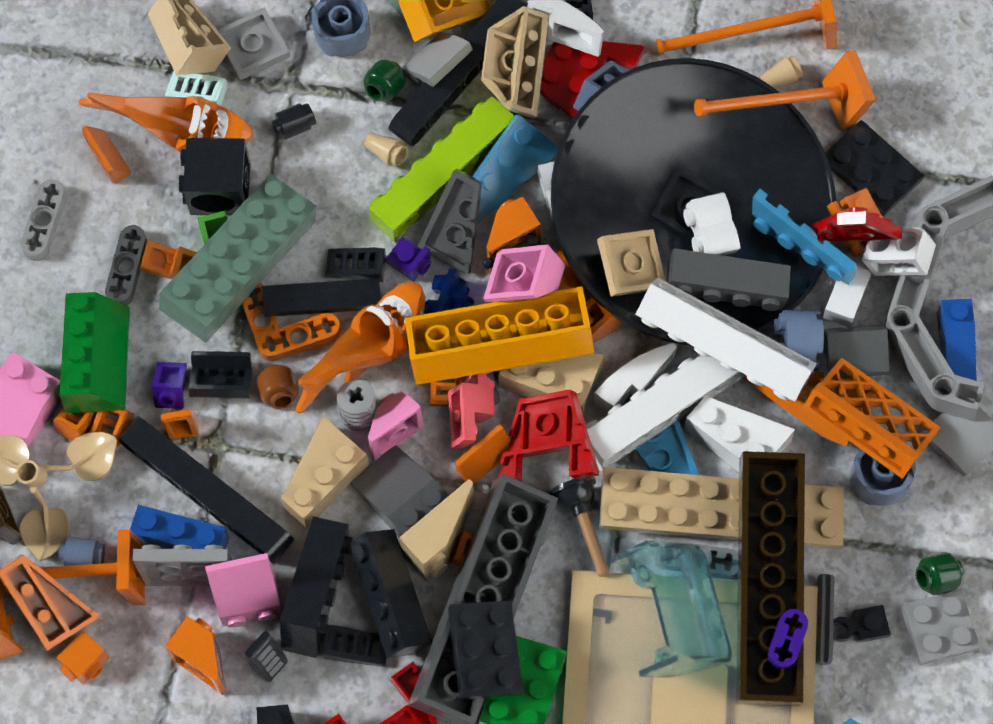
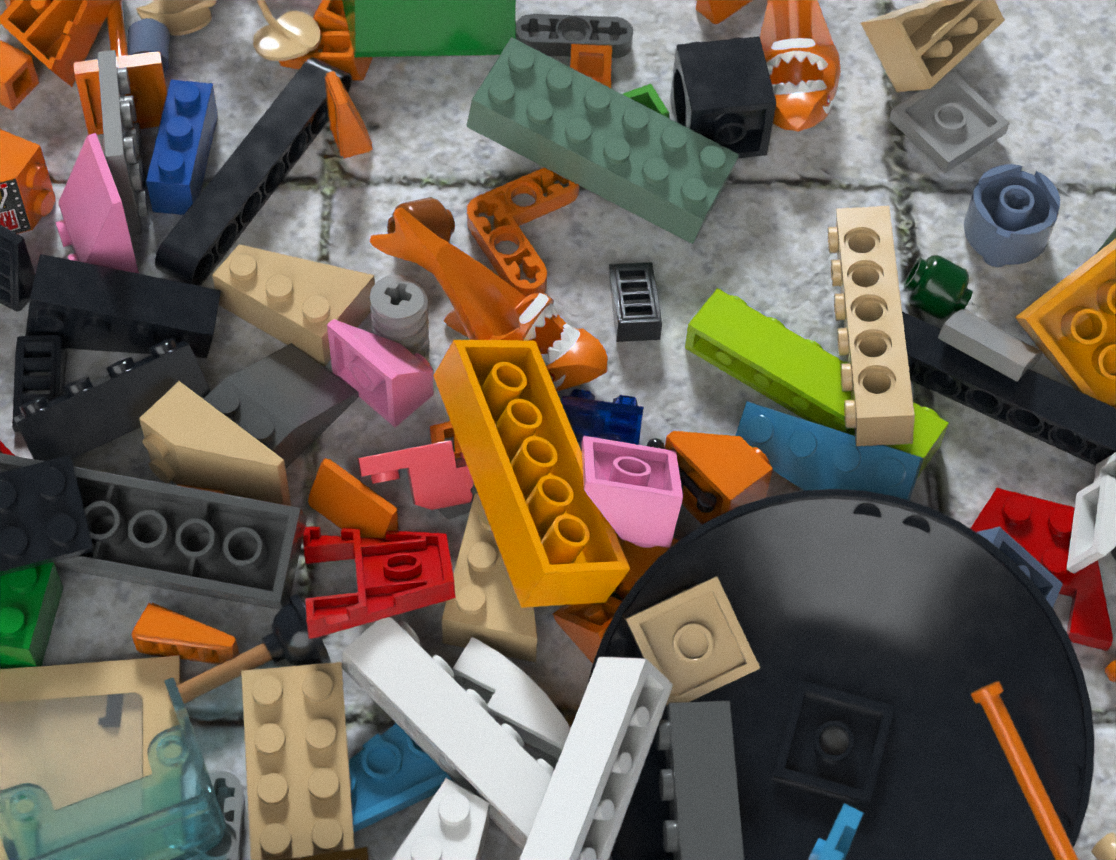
camera: 75 degrees right, 10 degrees down
(169, 385) = (405, 103): dark purple bracket -> none
(216, 83) = (855, 93): light aqua slope -> none
(220, 374) = (426, 159): black bracket -> none
(293, 120) = (840, 184): black brick -> none
(319, 297) = (569, 258): black tile -> none
(351, 105) = (873, 327): none -> tan brick
(387, 149) = (820, 315): tan cone -> none
(409, 259) = (657, 366): dark purple bracket -> none
(454, 222) = (726, 399): dark grey wing -> none
(516, 60) = (1016, 442): tan wedge -> none
(558, 572) = (171, 634): none -> orange slope
(712, 225) = (793, 767): white brick -> none

